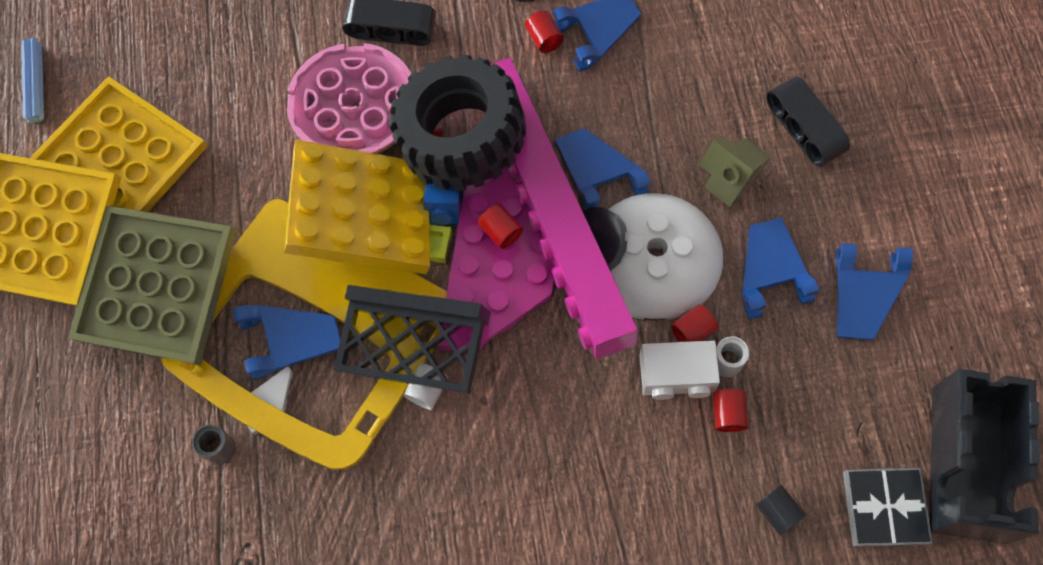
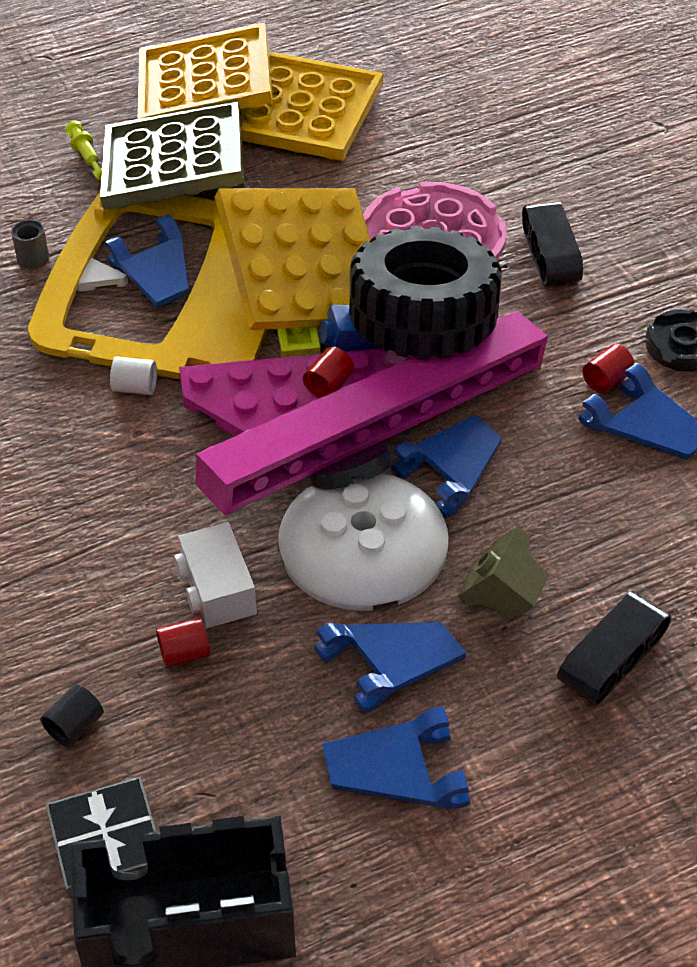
camera: 70 degrees right, 20 degrees down
(32, 81) = (360, 36): light blue axle -> none
(75, 367) = (82, 143): none -> neon yellow piece
(413, 307) = (203, 334): black fence -> none
(694, 325) = (279, 585): red beam -> none
(735, 346) = (255, 613): white beam -> none

